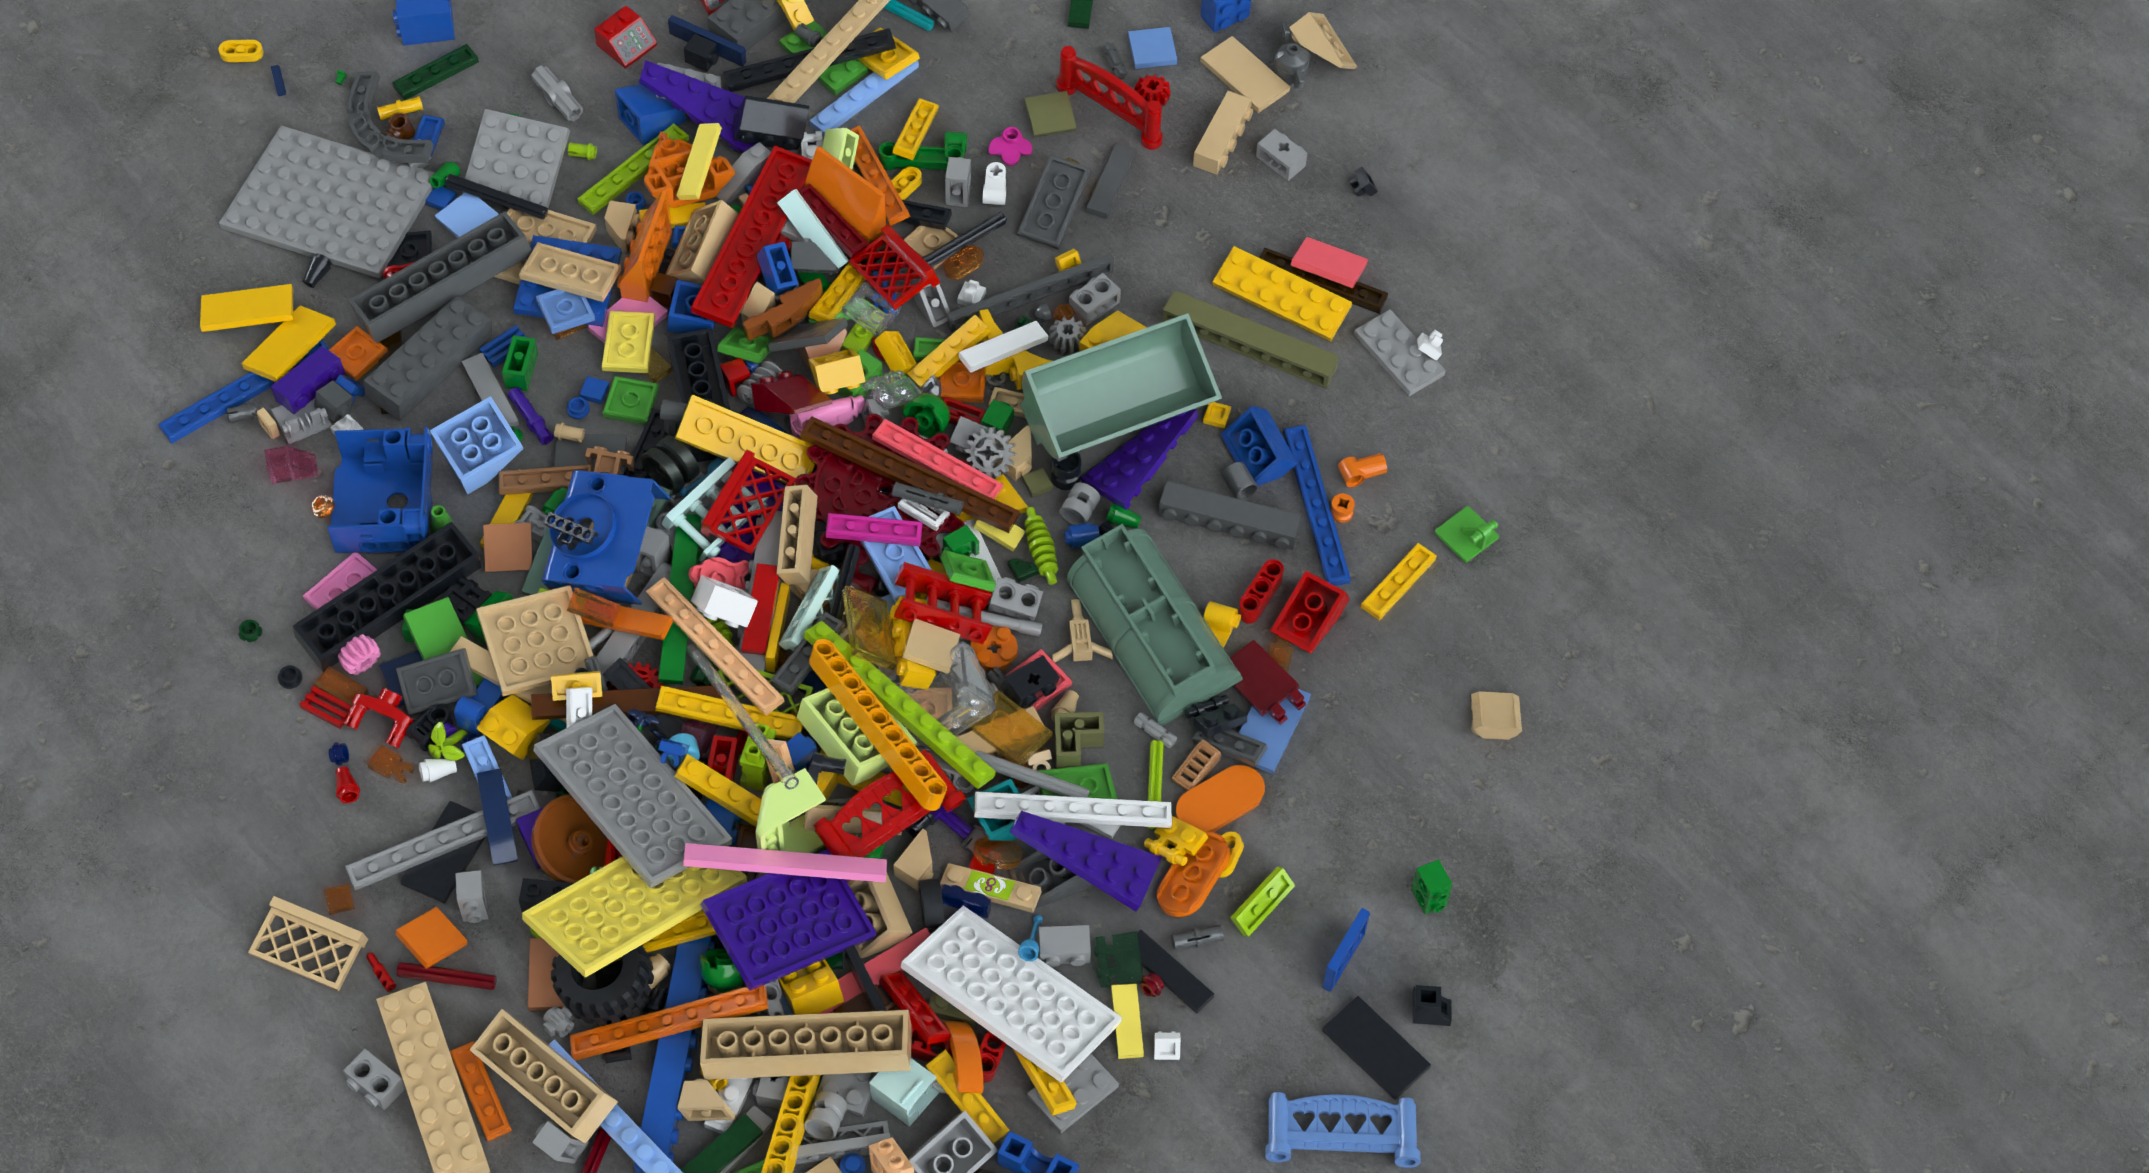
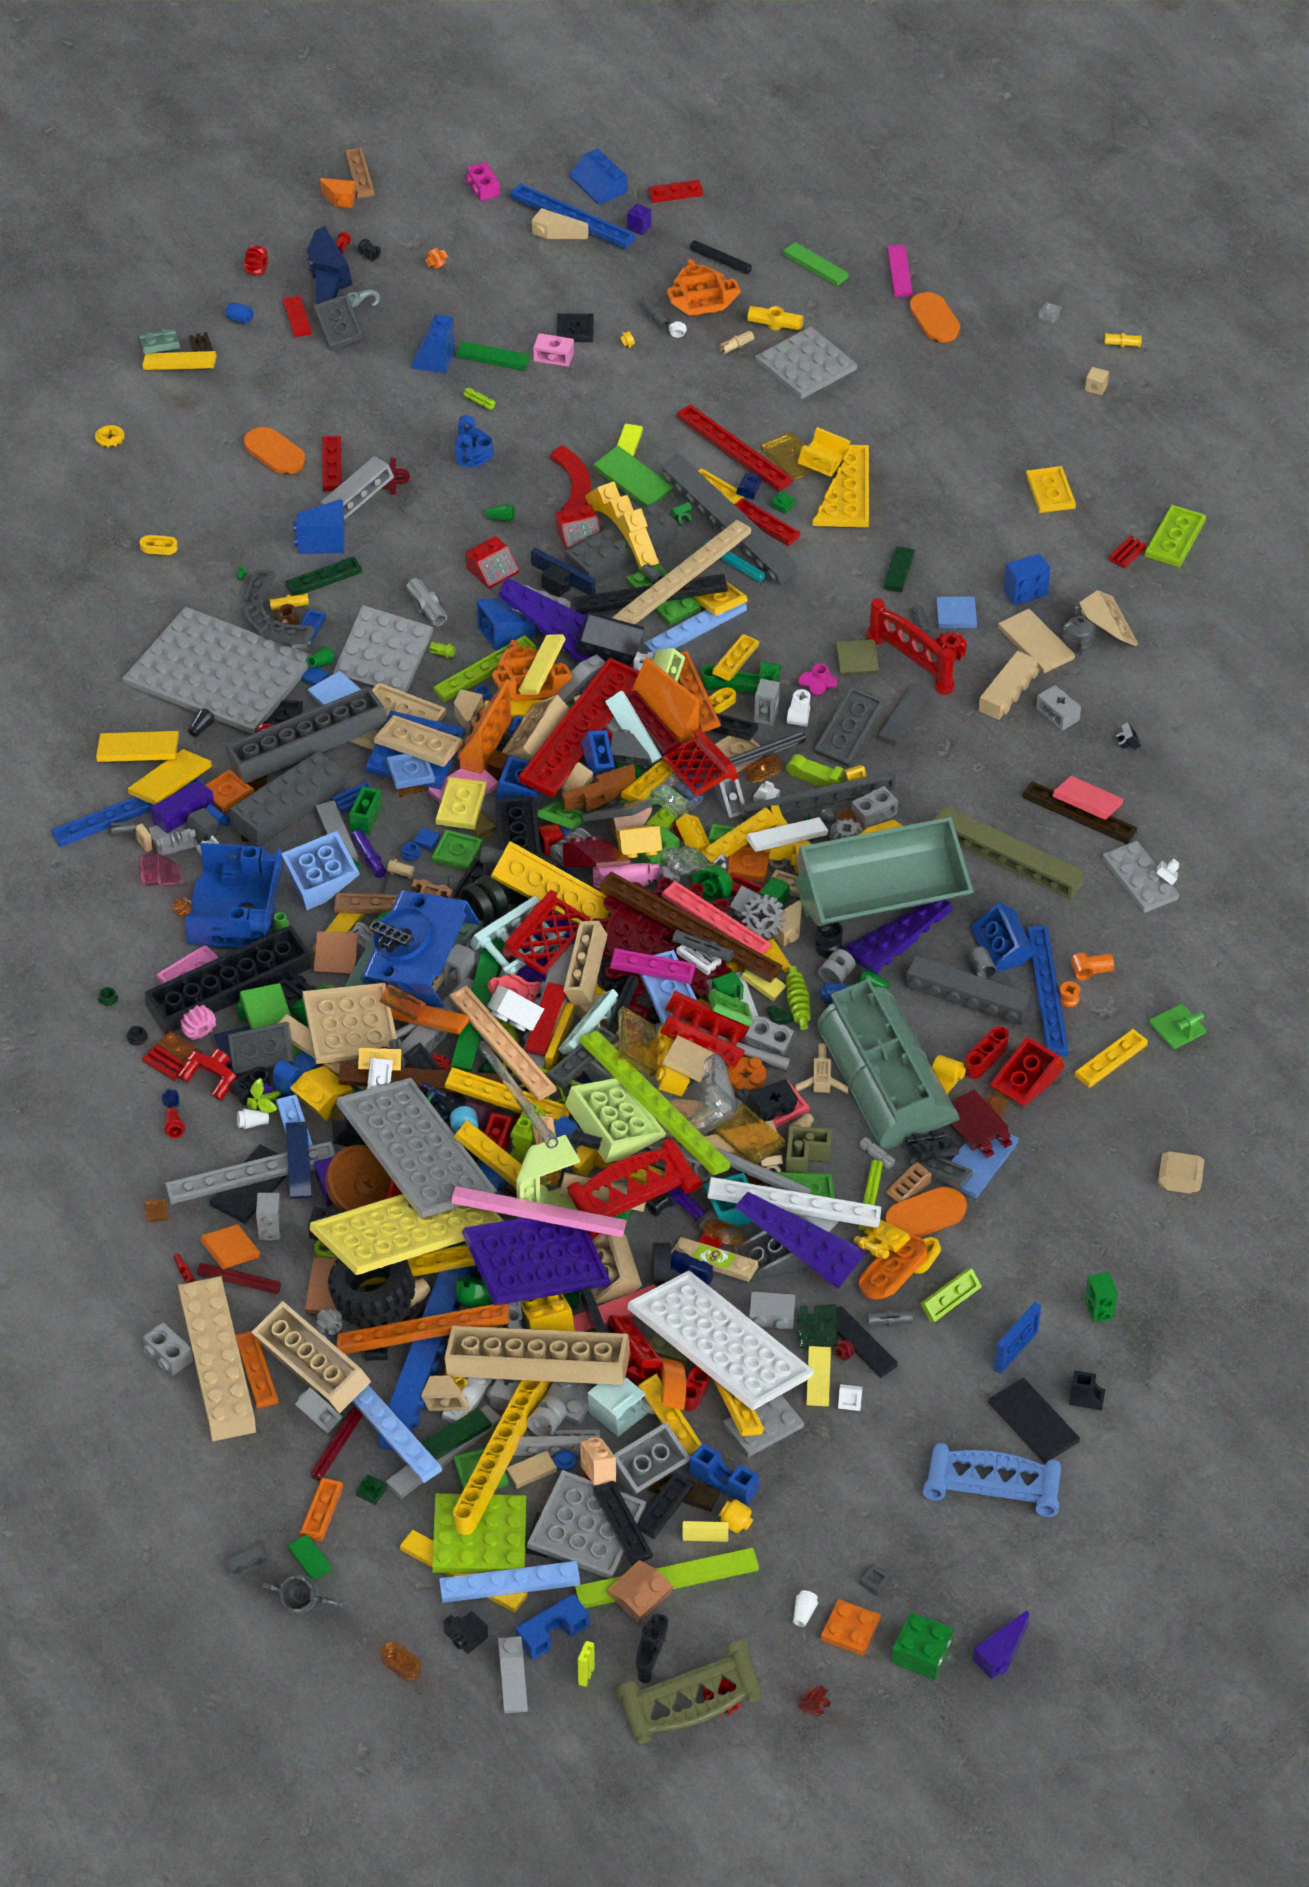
camera: 10 degrees right, 10 degrees down
(278, 80) = (187, 570): dark blue tile -> none
(314, 922) = (131, 1223): tan fence -> none
(388, 762) = (212, 1110): clear orange plate -> none
(496, 196) = (362, 677): black axle -> none
(673, 748) = (454, 1114): blue tile -> none
(877, 725) = (633, 1113): light orange beam -> none
(915, 862) = (651, 1231): tan slope -> none
(1022, 262) = (814, 772): none -> lime leg
(1029, 948) = (741, 1306): dark azure hinge -> none
(1037, 482) = (802, 949): olive tile -> none
(1217, 415) = (969, 910): yellow tile -> none
(1282, 293) = (1042, 819): yellow plate -> none

